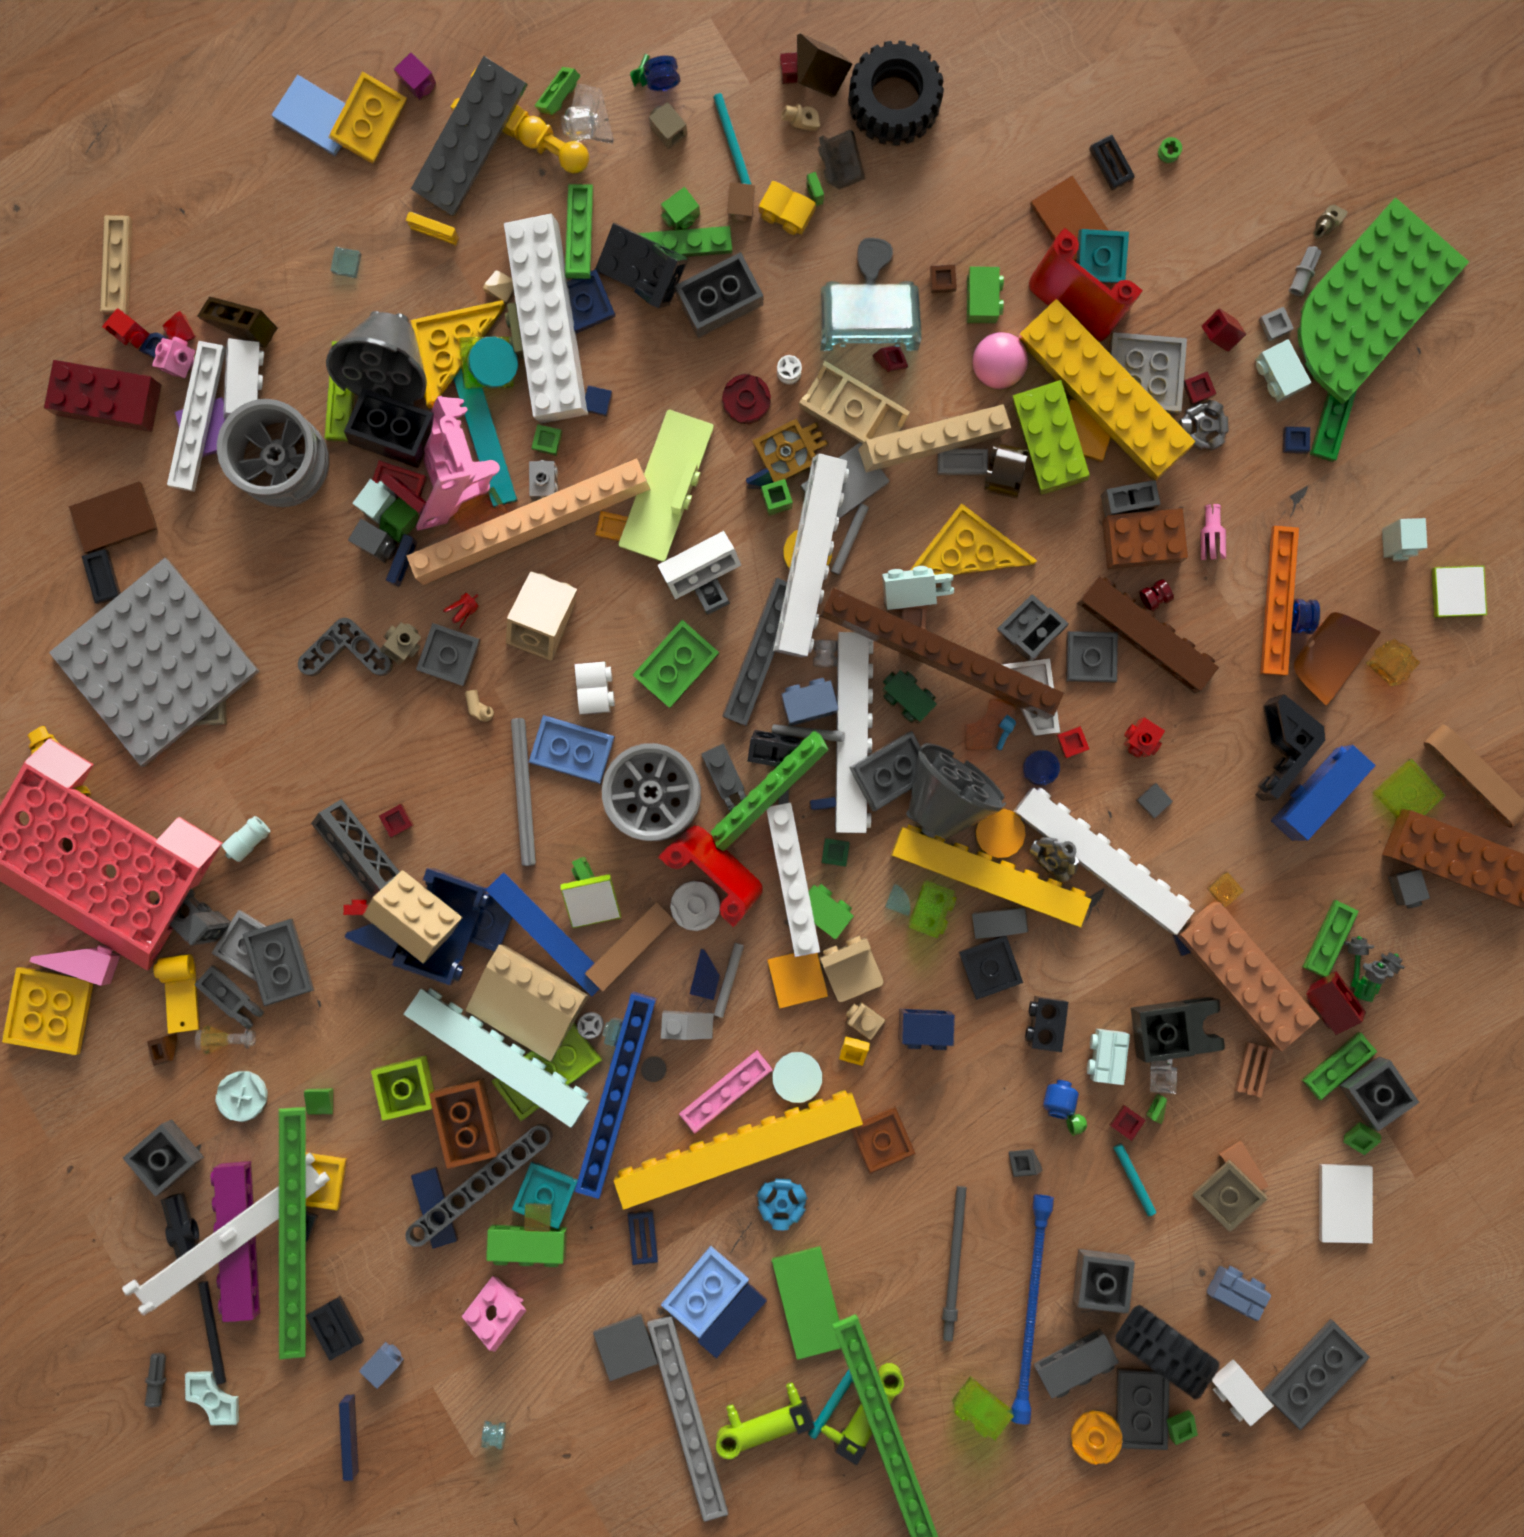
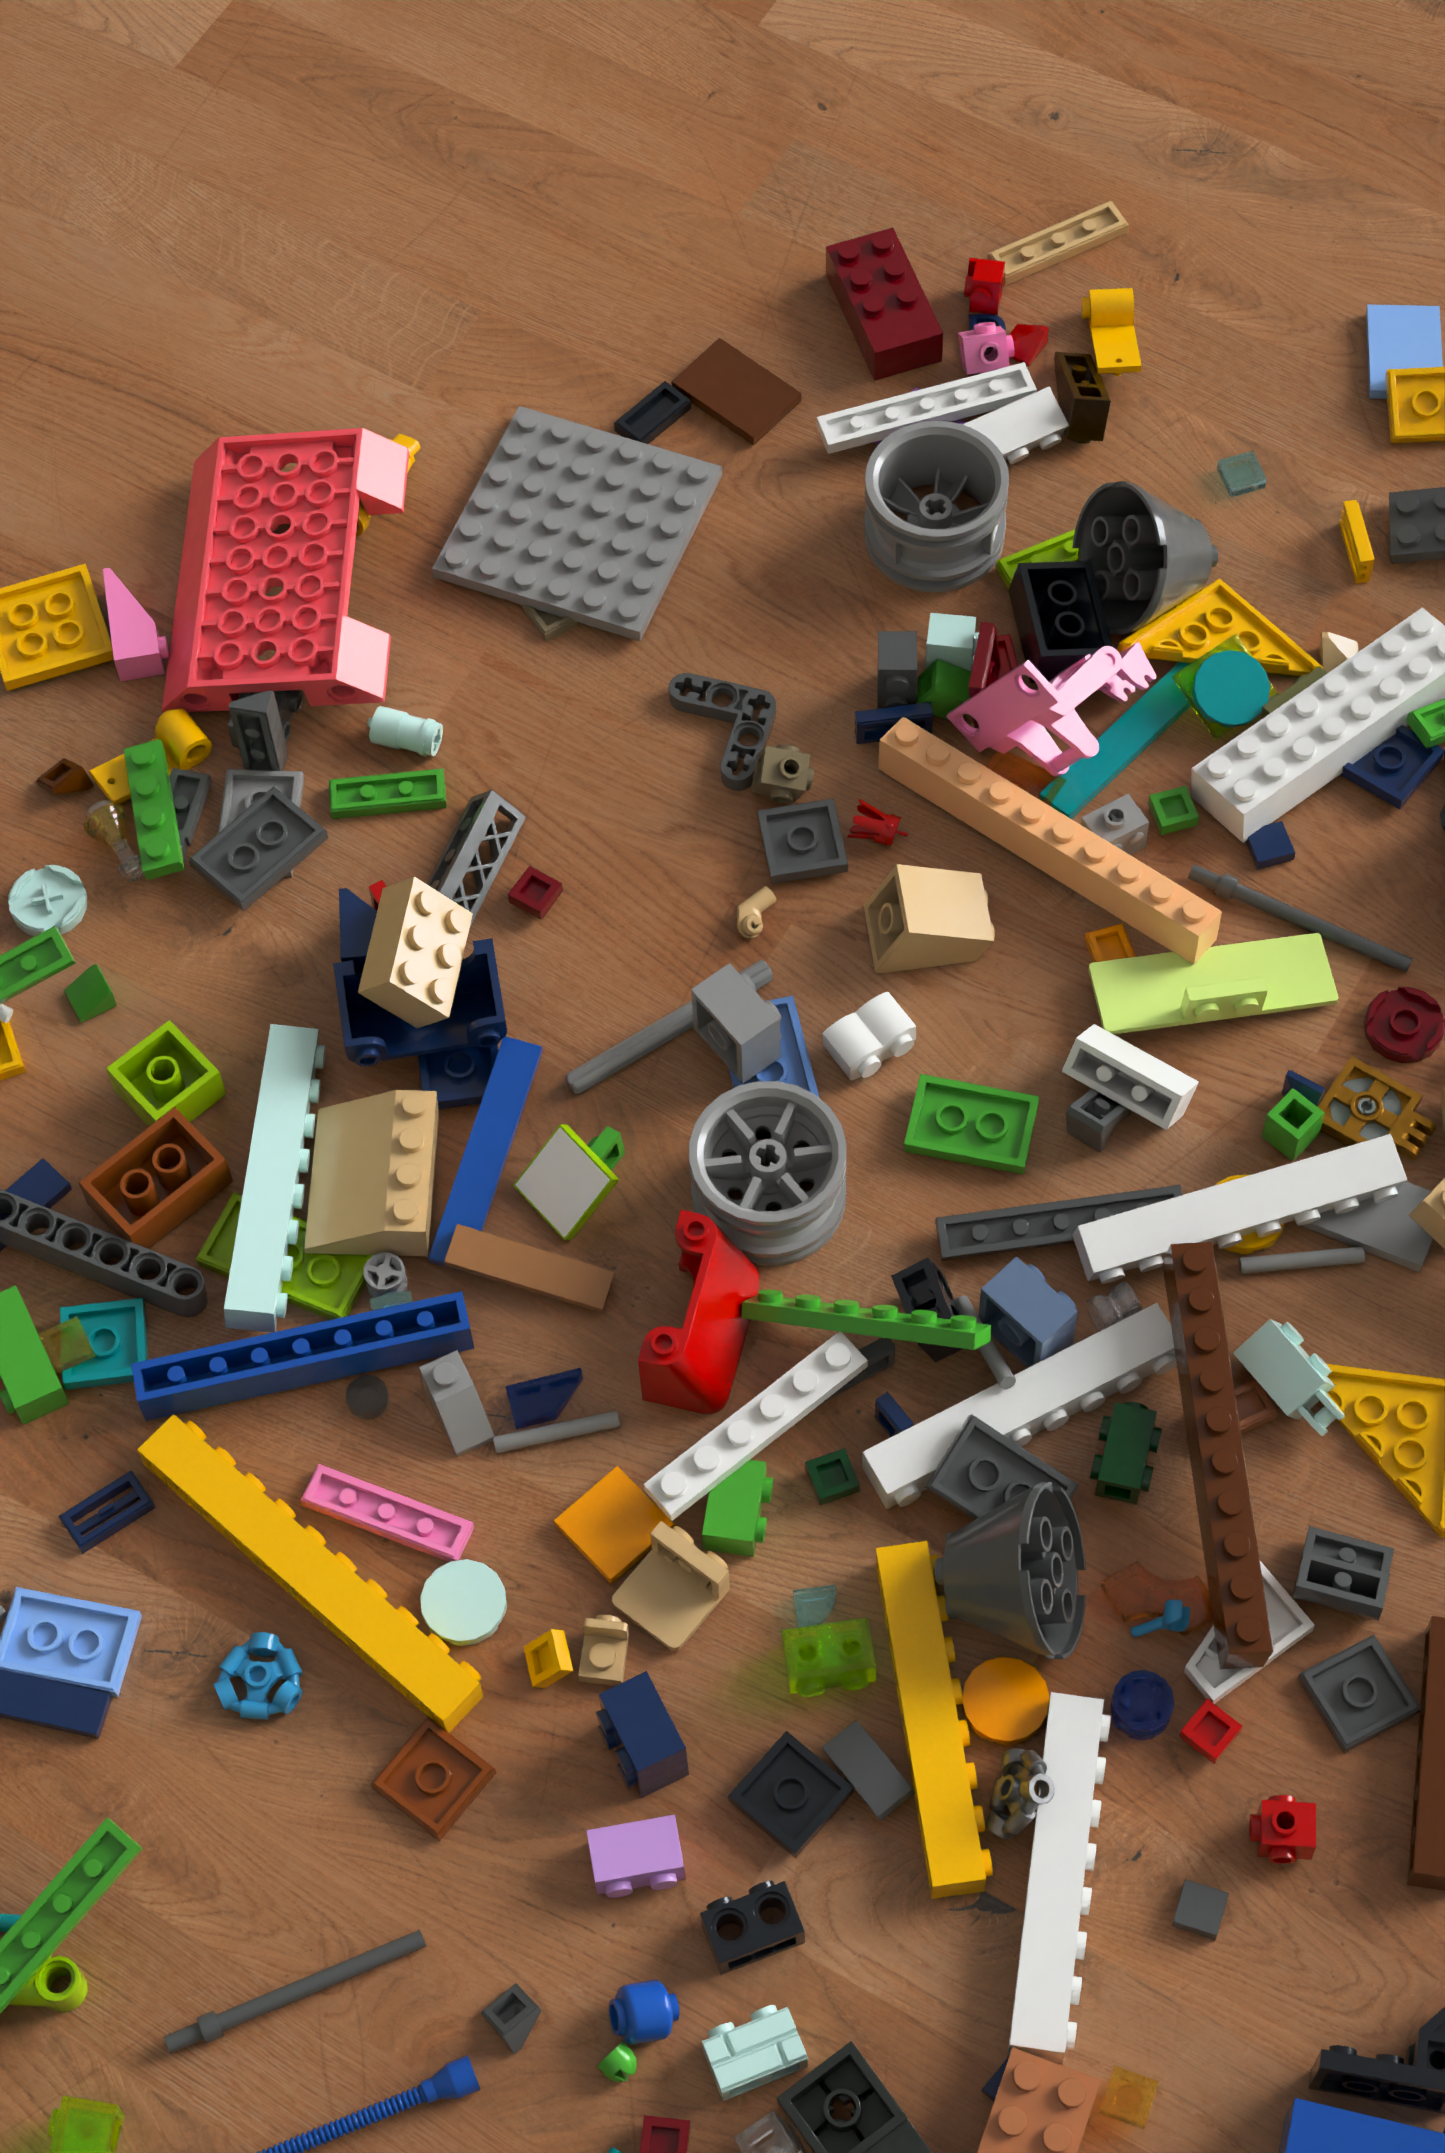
camera: 65 degrees right, 25 degrees down
(203, 274) = (1112, 330): none -> yellow door
(218, 1010) = (153, 809): none -> bright green plate
(280, 869) = (387, 793): none -> bright green tile
(551, 759) = (737, 1022): none -> light grey brick
(611, 439) = (1229, 887): none -> dark grey bar
(695, 905) = (628, 1321): white tile -> none
(723, 774) = (856, 1265): dark grey hinge -> none
(807, 1301) = (134, 1787): bright green tile -> none
(981, 1061) = (636, 1856): none -> lavender brick

